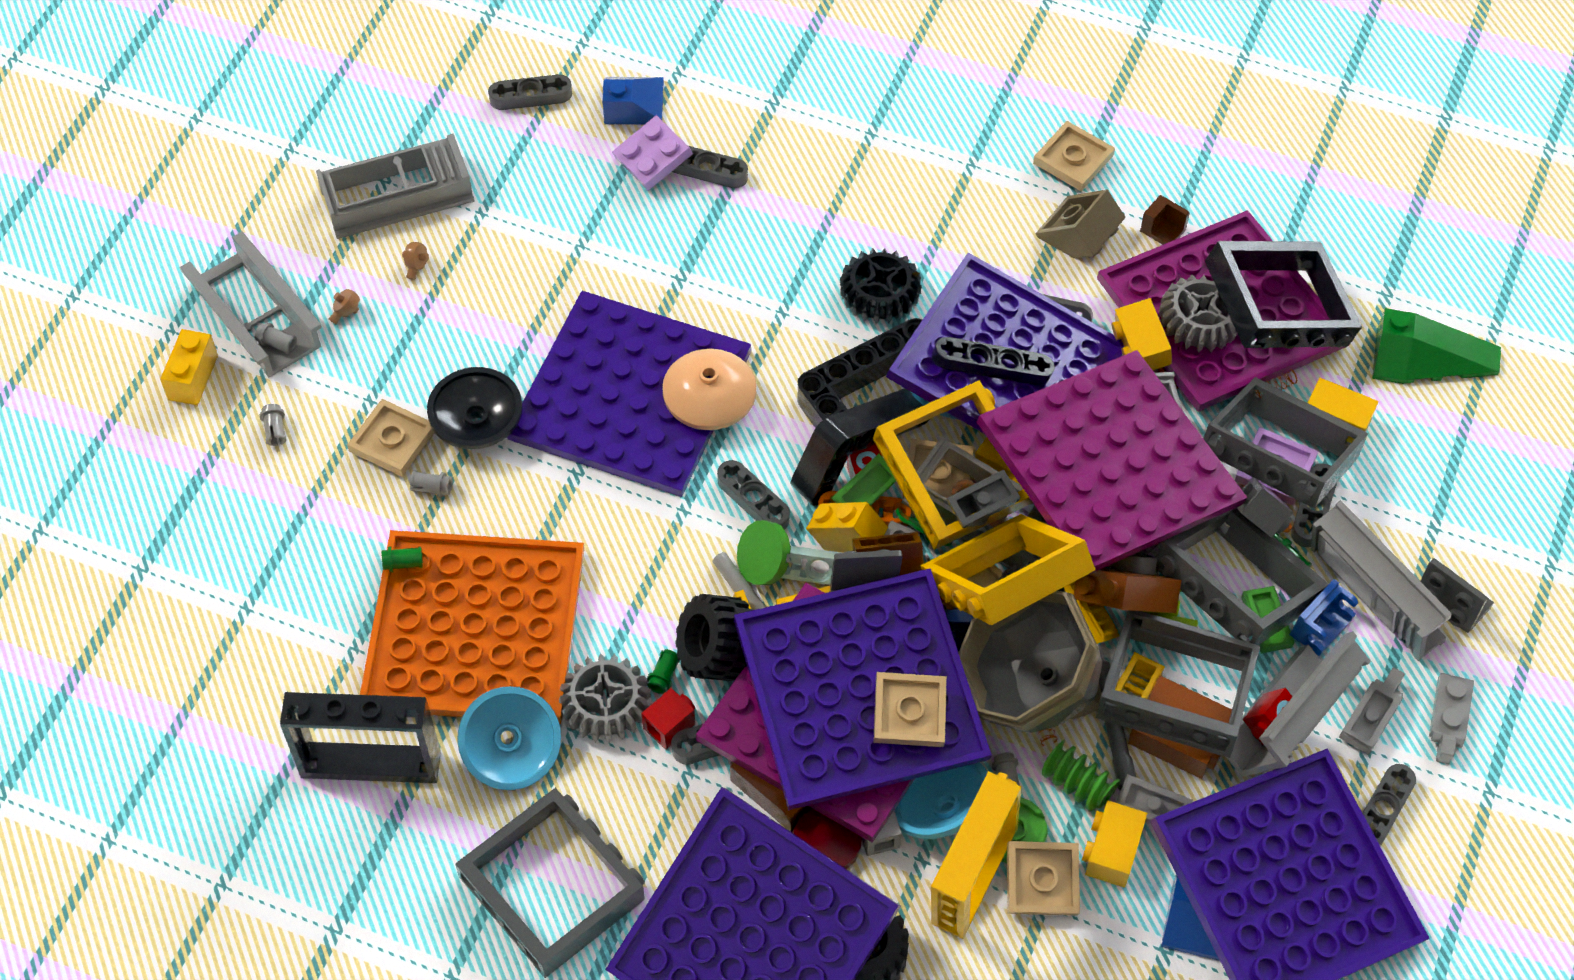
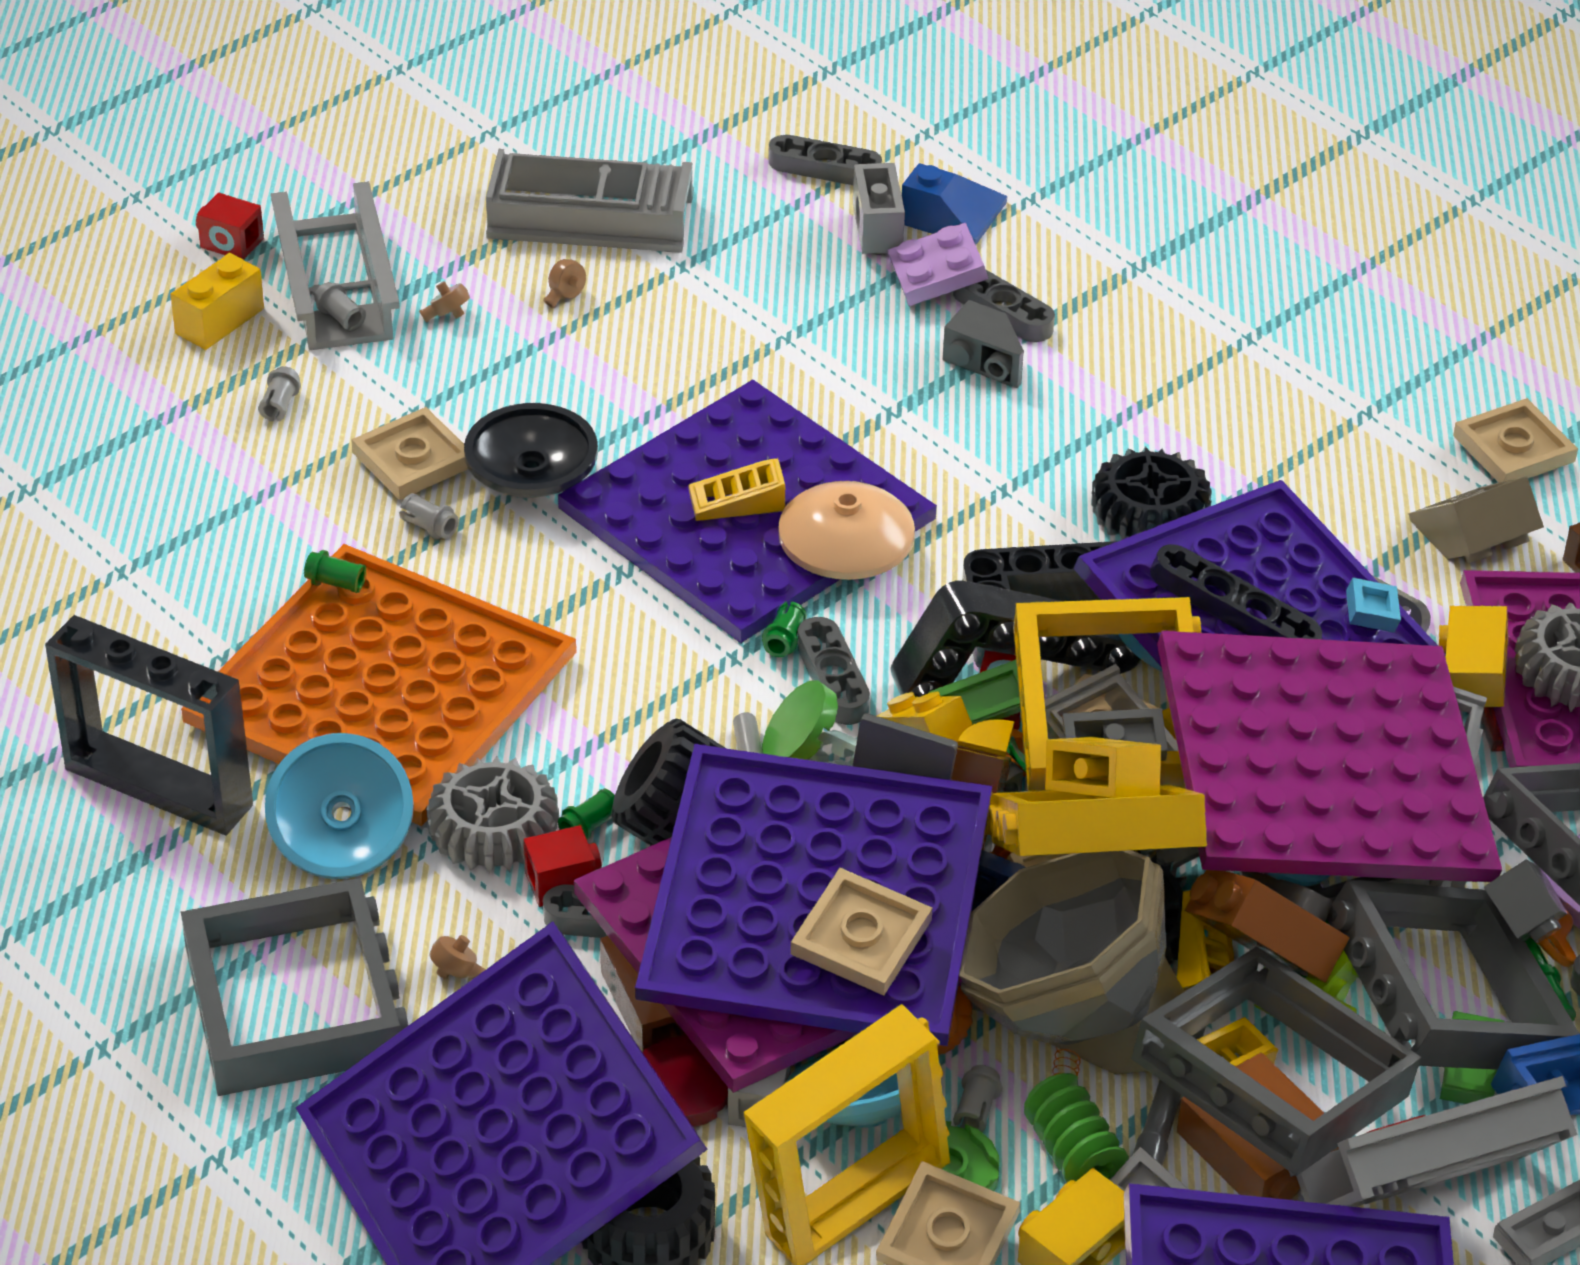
camera: 25 degrees right, 15 degrees down
(159, 300) = (230, 226): none -> red brick
(592, 122) = (878, 207): none -> light grey brick
(632, 373) = (753, 488): none -> yellow slope
(642, 815) = (454, 958): none -> medium nougat piece
(709, 485) = (781, 636): none -> green pin
(716, 205) = (984, 343): none -> dark grey slope
(894, 521) = (988, 736): none -> yellow tile
(998, 532) = (1103, 767): none -> yellow brick
(1068, 325) = (1373, 605): none -> medium azure plate

